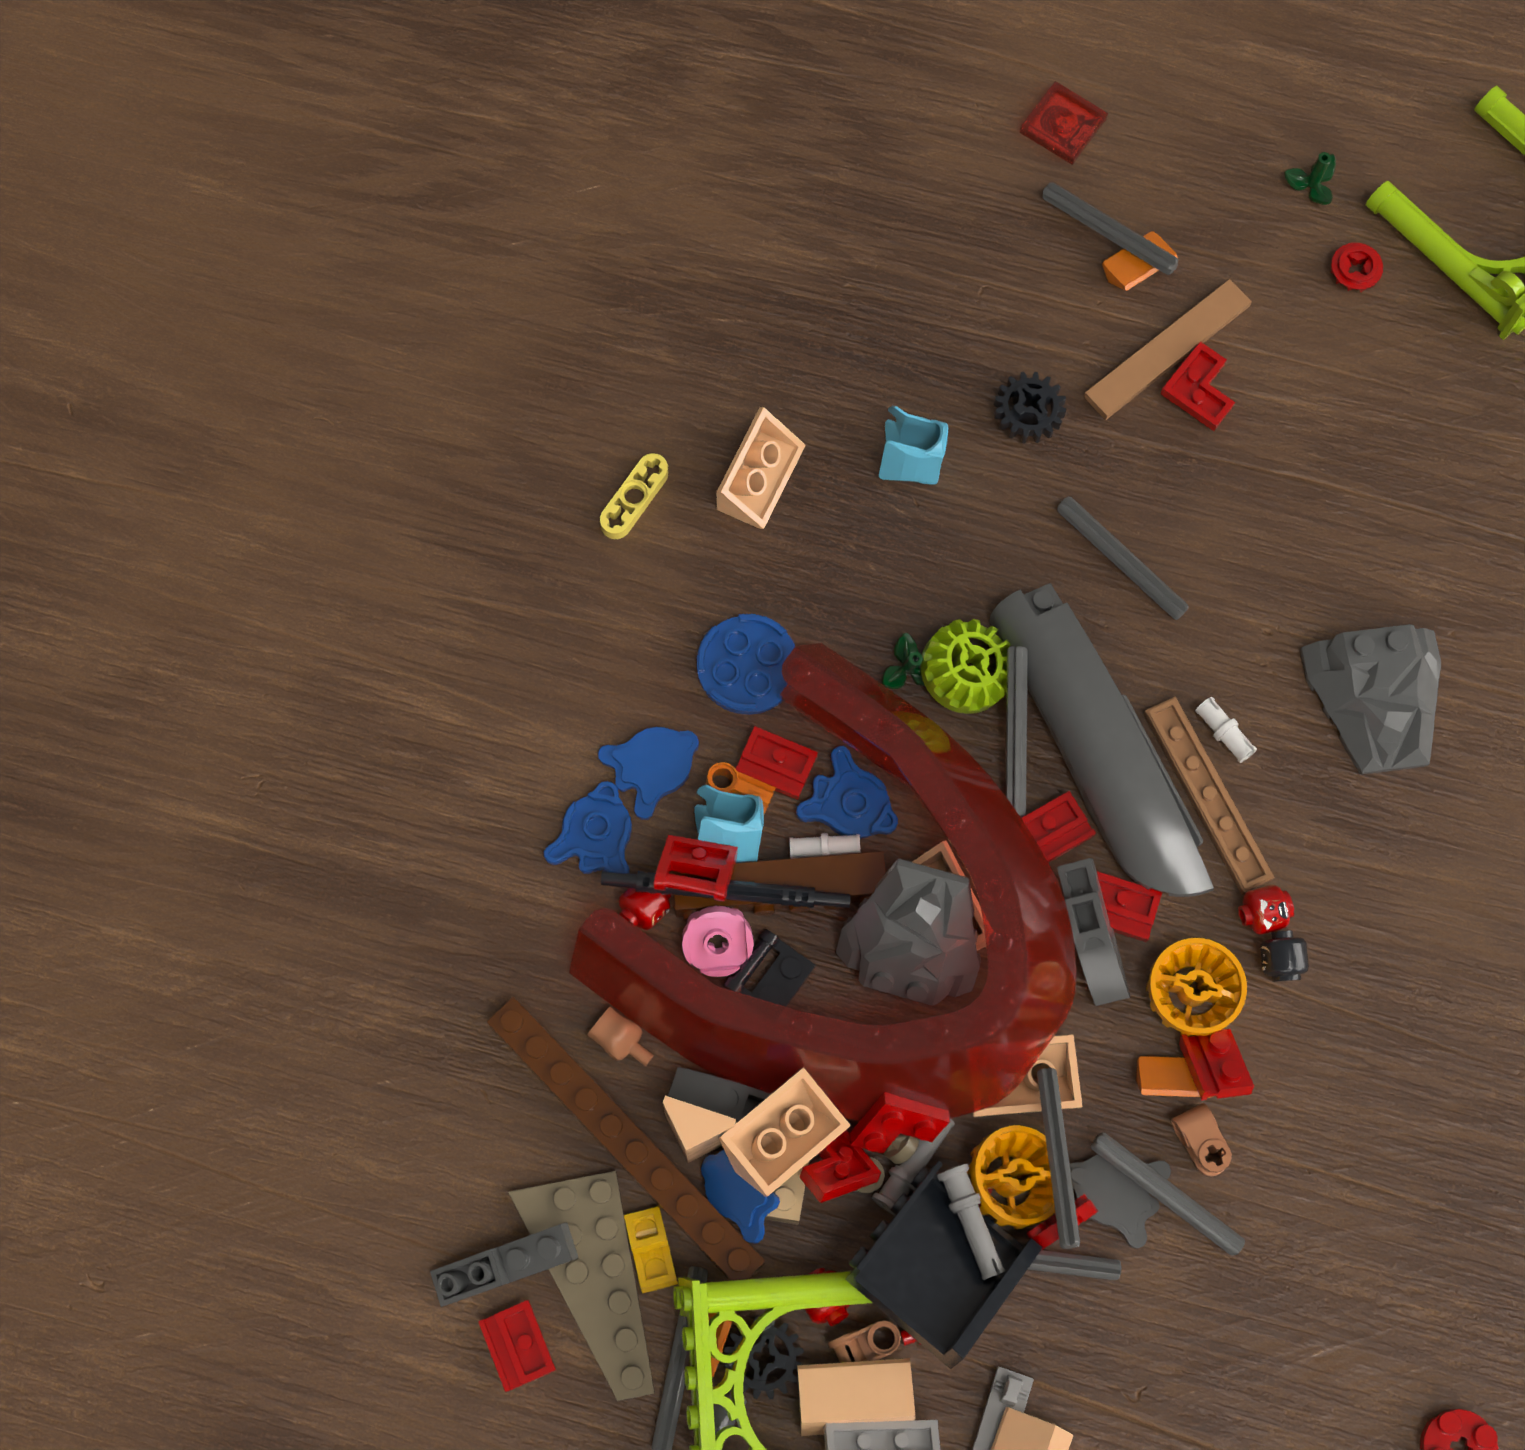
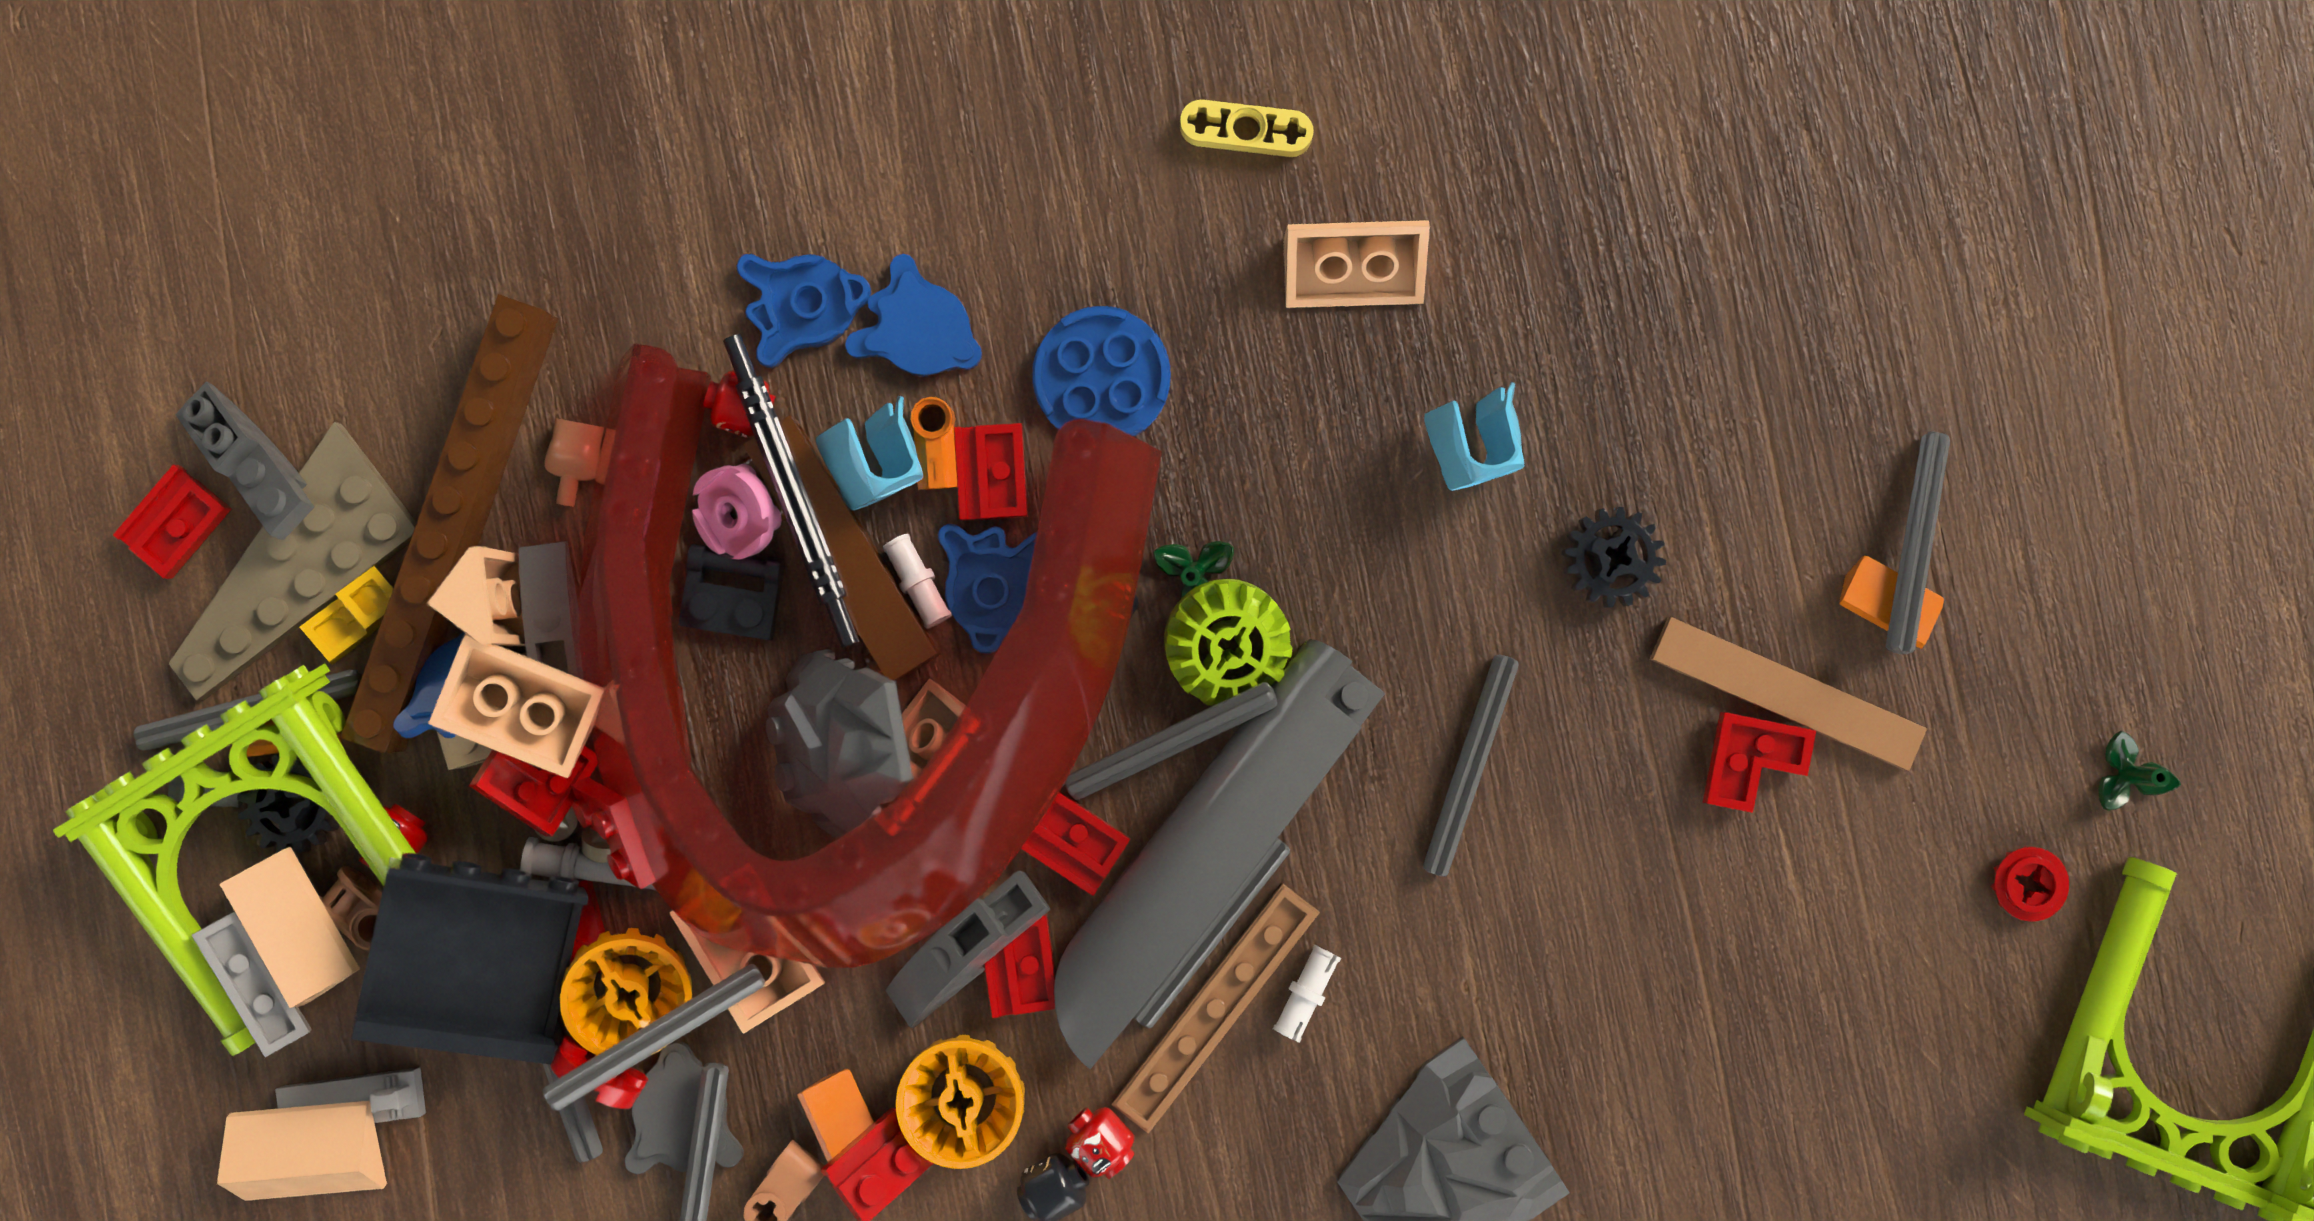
camera: 70 degrees right, 15 degrees up
(698, 859) = (804, 438): red plate -> none
(965, 1203) = (555, 953): light grey pin -> none
(1063, 122) = (2047, 412): clear red tile -> none

